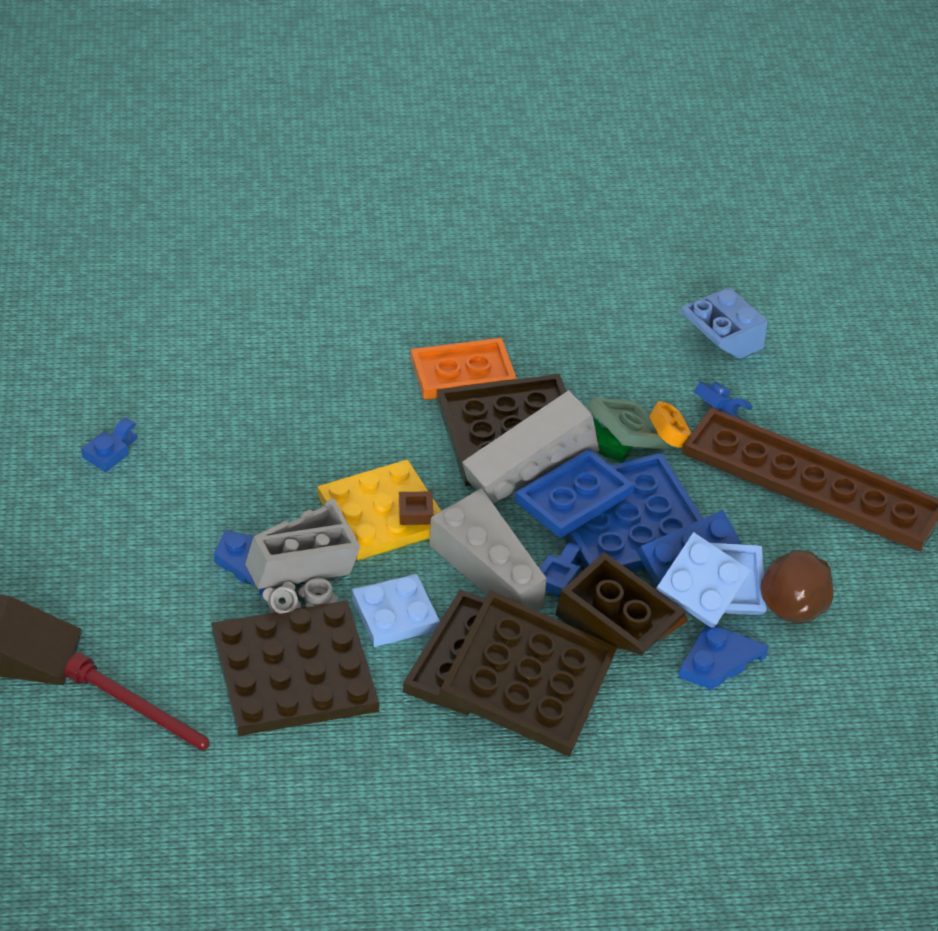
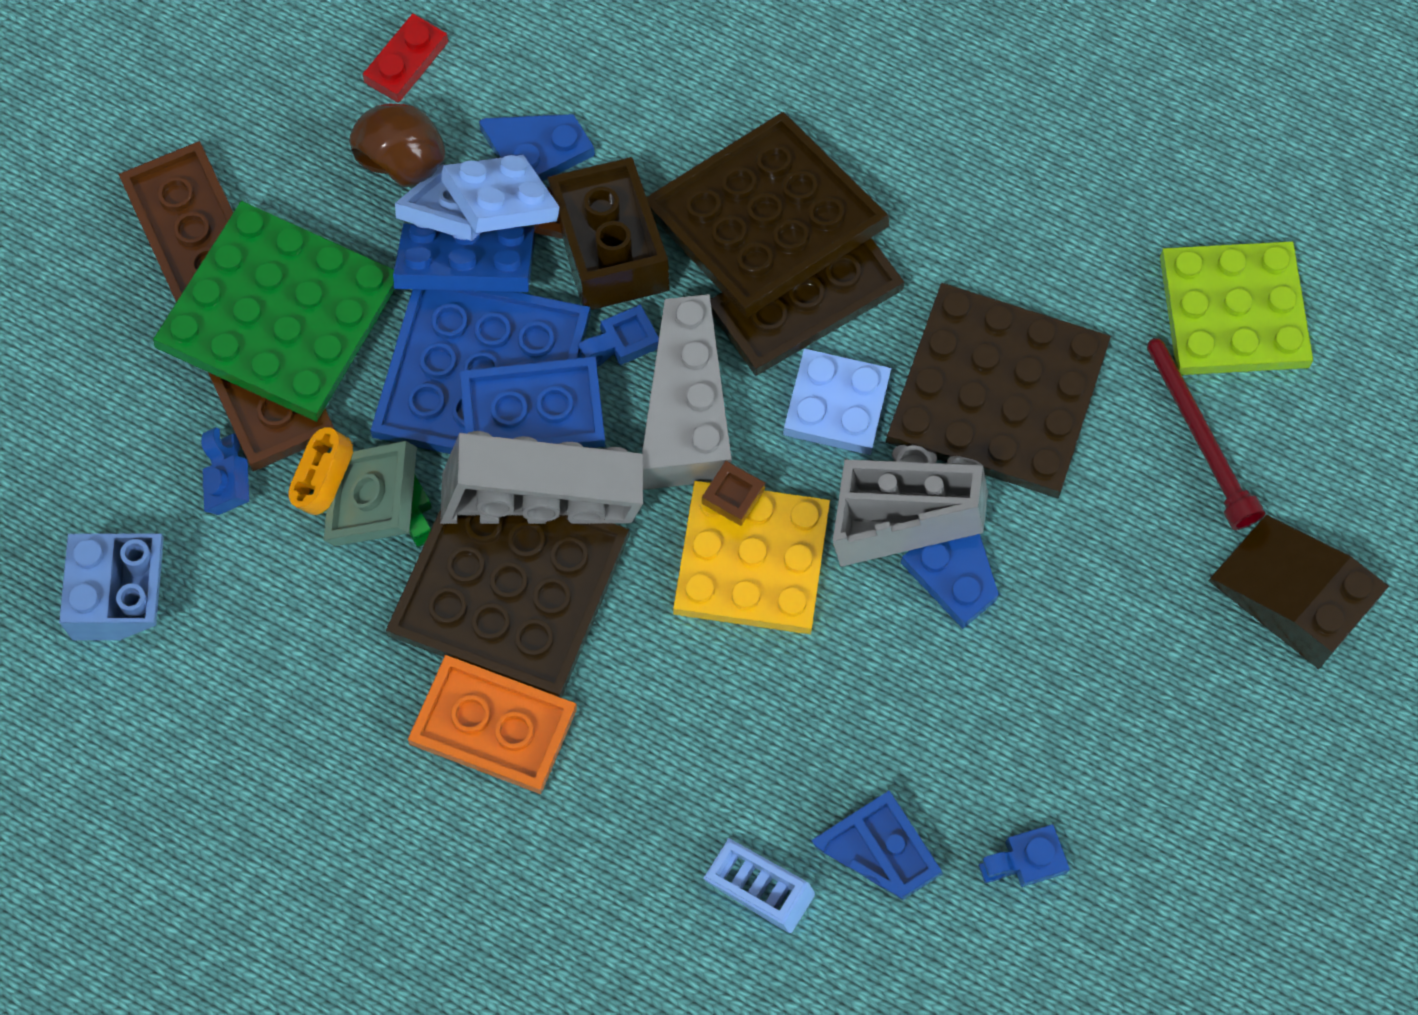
camera: 145 degrees left, 25 degrees up
(159, 795) = (1235, 308): none -> lime plate
(197, 412) = (881, 847): none -> blue wing
(255, 372) = (795, 904): none -> light blue slope
(776, 476) = (277, 310): none -> green plate
(856, 665) = (405, 58): none -> red plate

